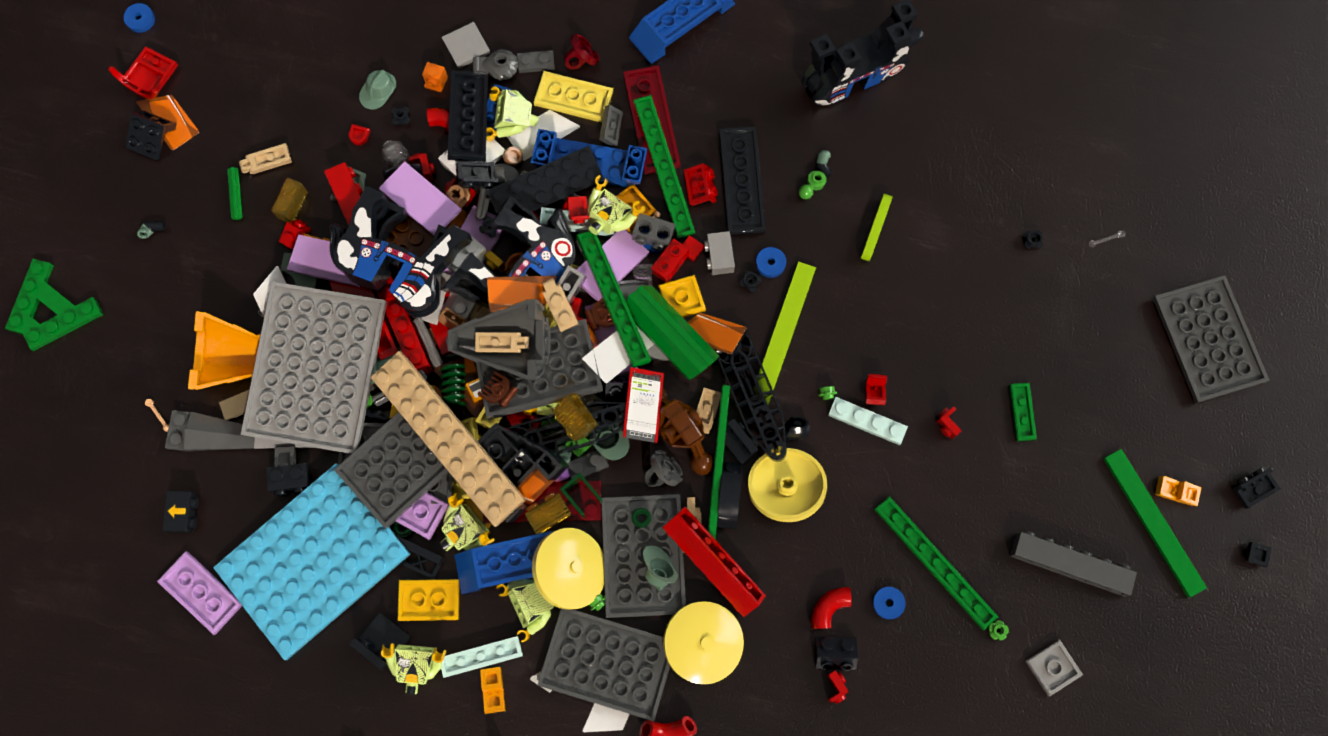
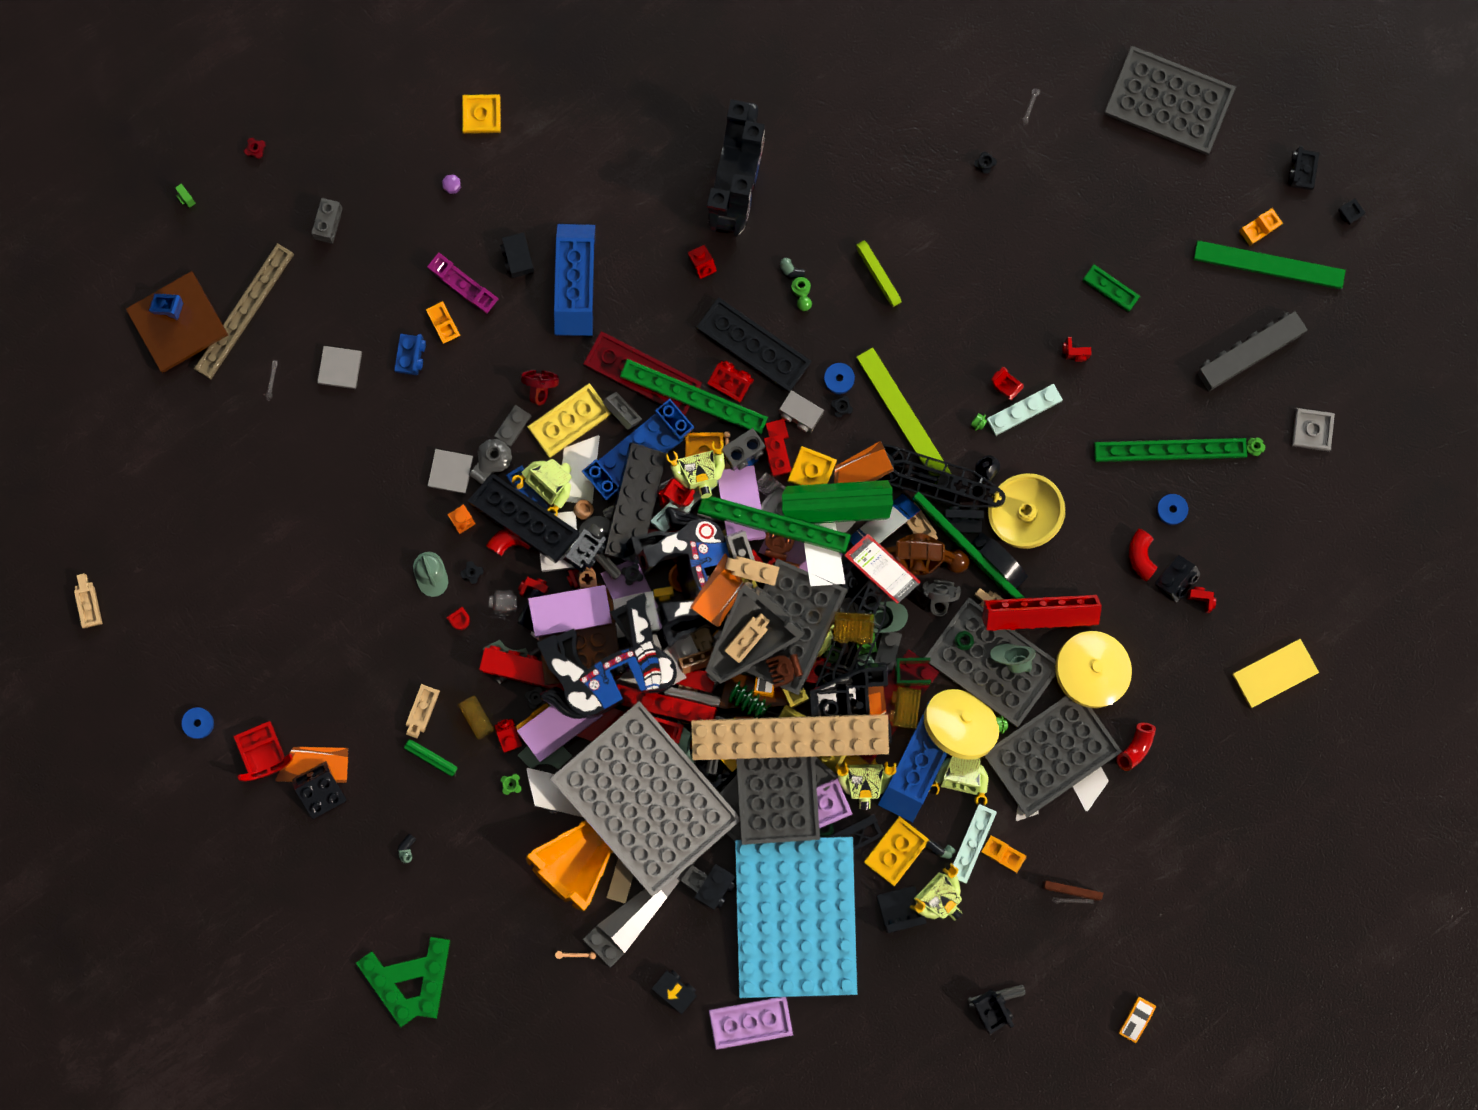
camera: 55 degrees left, 5 degrees up
(252, 265) = (511, 779): none -> bright green plate
(454, 634) = (939, 851): none -> arm
(697, 386) = (879, 530): none -> sticker
(773, 96) = (702, 261): none -> red bracket

